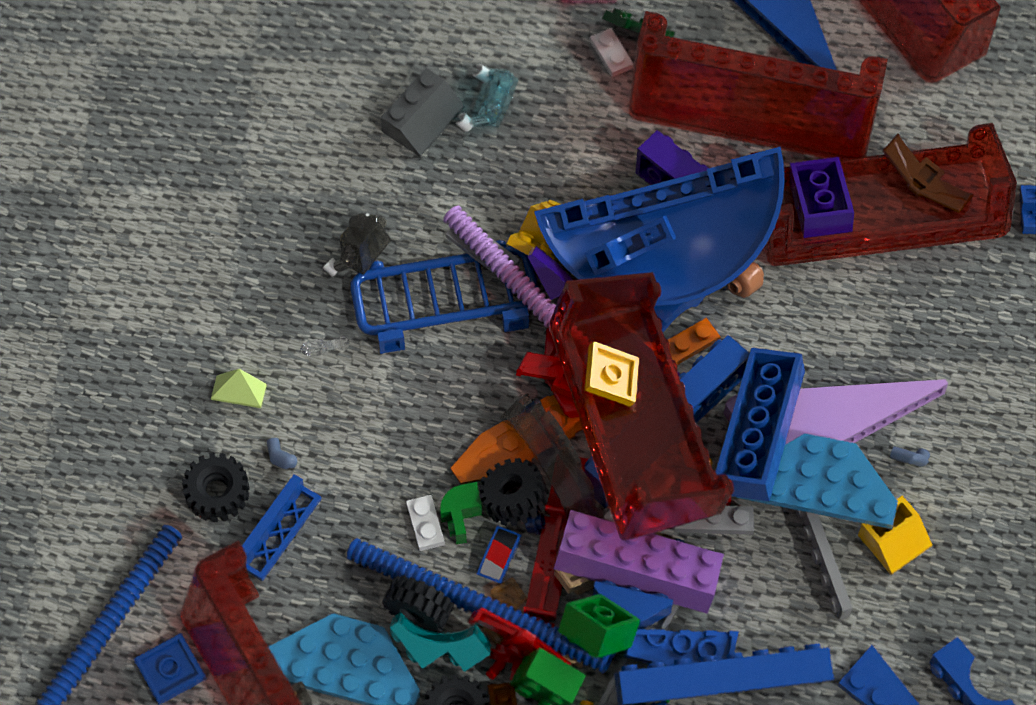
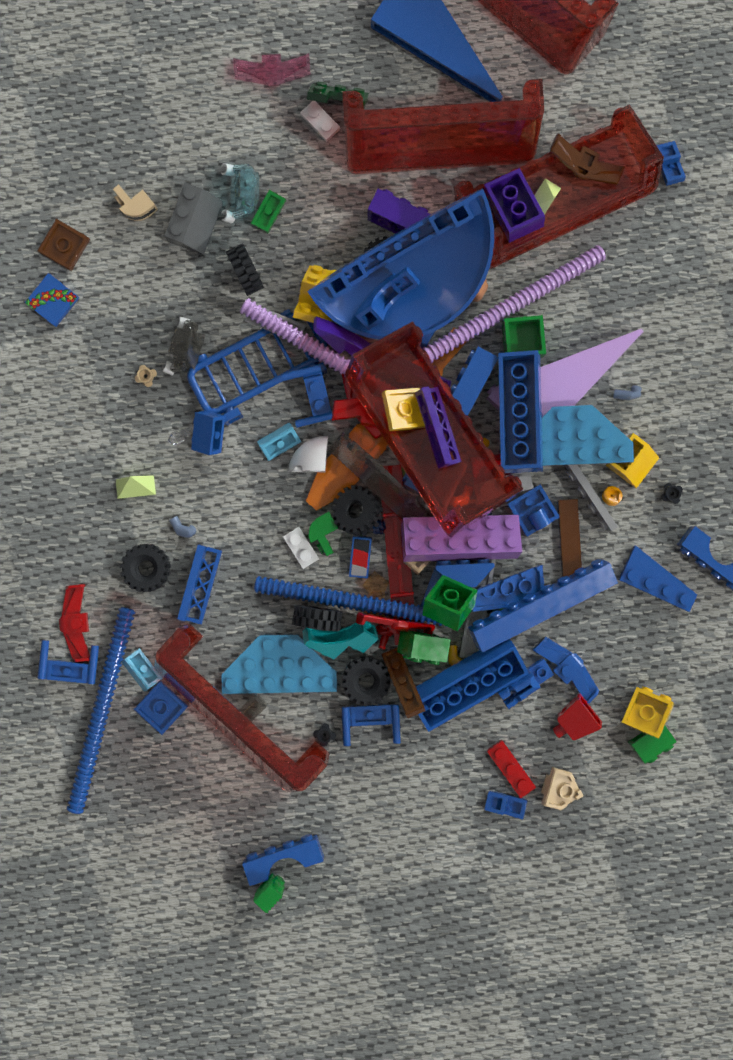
camera: 15 degrees left, 25 degrees up
(67, 584) = (67, 670): none -> blue plate
(98, 529) = (74, 623): none -> red plate
(161, 613) = (141, 670): none -> medium azure slope
(217, 154) = (52, 300): none -> blue tile
(254, 100) = (63, 245): none -> reddish brown tile
(299, 261) = (140, 376): none -> tan plate
(354, 347) = (208, 432): none -> blue brick
(357, 83) = (138, 207): none -> tan brick
(440, 389) = (279, 441): none -> medium azure slope
(465, 178) = (244, 269): none -> black tyre
(474, 413) = (310, 456): none -> white brick
(506, 342) = (316, 393): none -> blue plate
(516, 129) = (268, 211): none -> green plate
(644, 409) = (435, 427): none -> dark purple fence
(746, 562) = (534, 510): none -> blue plate
(786, 605) = (569, 536): none -> reddish brown tile
(793, 307) = (514, 303): none -> lavender piece
(796, 338) = (524, 334): none -> green piece
(856, 574) = (612, 496): none -> light orange tile
(866, 203) = (546, 194): none -> yellowish green slope
(938, 587) = (675, 498): none -> black plate

